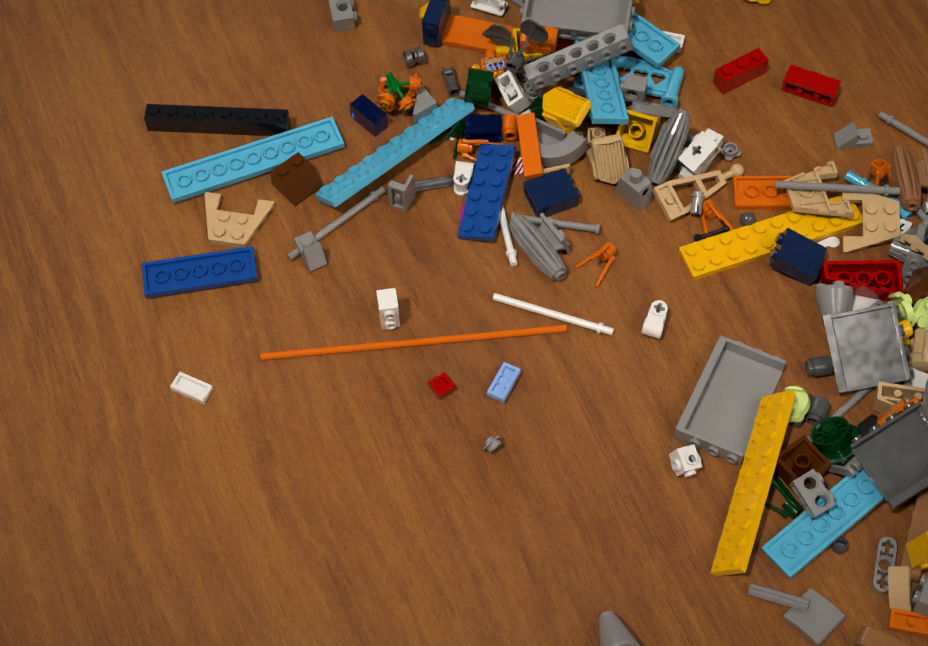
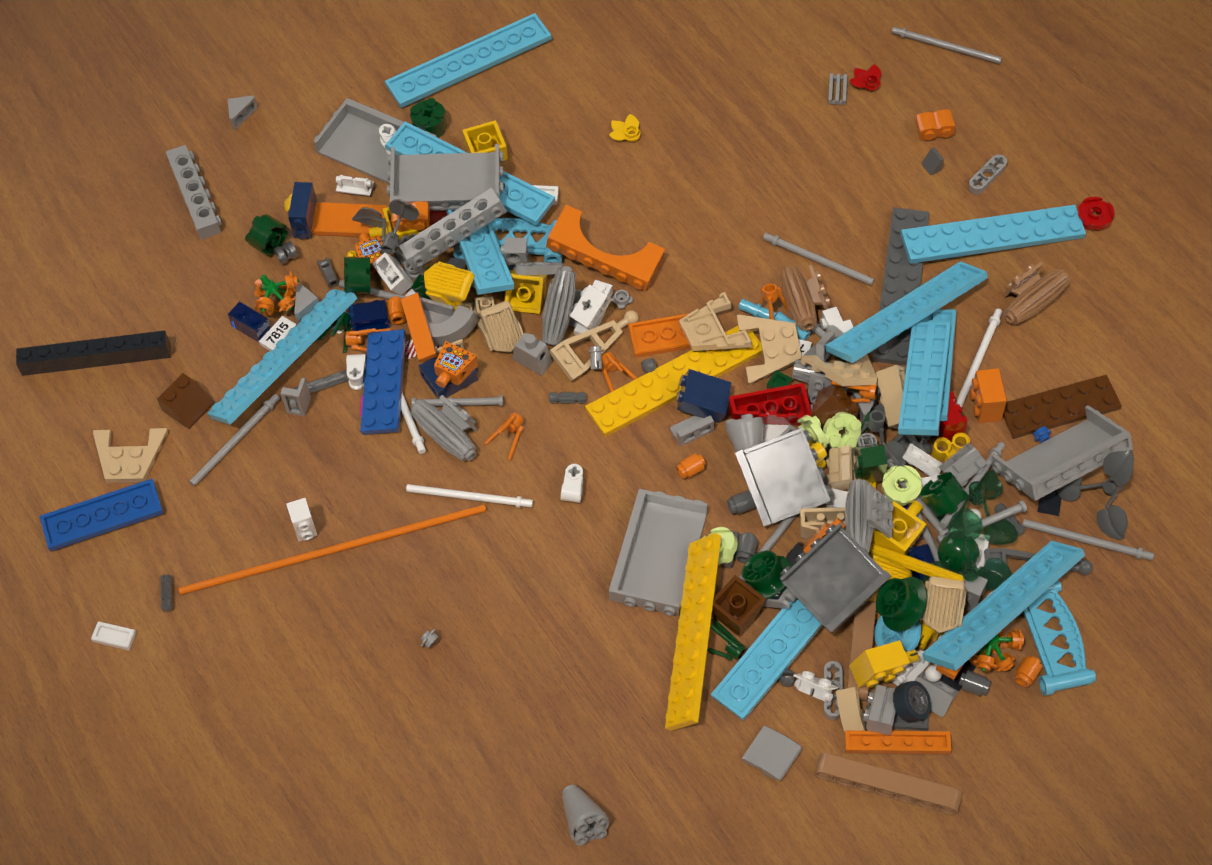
camera: 10 degrees left, 0 degrees up
(248, 355) = (166, 593): none -> flat silver axle
(251, 159) = (135, 388): medium azure plate -> none
(310, 251) = (212, 473): light grey slope -> none
(393, 129) = (276, 333): none -> white tile
(398, 36) = (266, 234): none -> dark green brick
(441, 385) = (368, 588): red plate -> none
(503, 382) = (430, 574): light blue plate -> none
(558, 186) = (454, 365): none -> orange torso
(663, 236) = (567, 397): none -> dark grey axle
(685, 461) = (623, 621): white brick -> none
(697, 237) = (602, 392): black hinge -> none
(740, 71) = (619, 214): red brick -> none
(744, 124) = (632, 269): none -> orange arch
(774, 322) = (690, 466): none -> orange brick
(779, 597) = (734, 740): light grey axle -> none
(781, 287) = (692, 429): none -> light grey panel
(808, 496) = (747, 636): light grey brick -> none
(811, 85) = (692, 218): red brick -> none
(831, 241) = (736, 374): white sticker -> none
(852, 138) = (740, 265): light grey slope -> none
(861, 553) = (808, 682): none -> white hinge
(874, 253) = (778, 380): none -> dark green plate
(885, 190) = (732, 319): light grey bar -> none

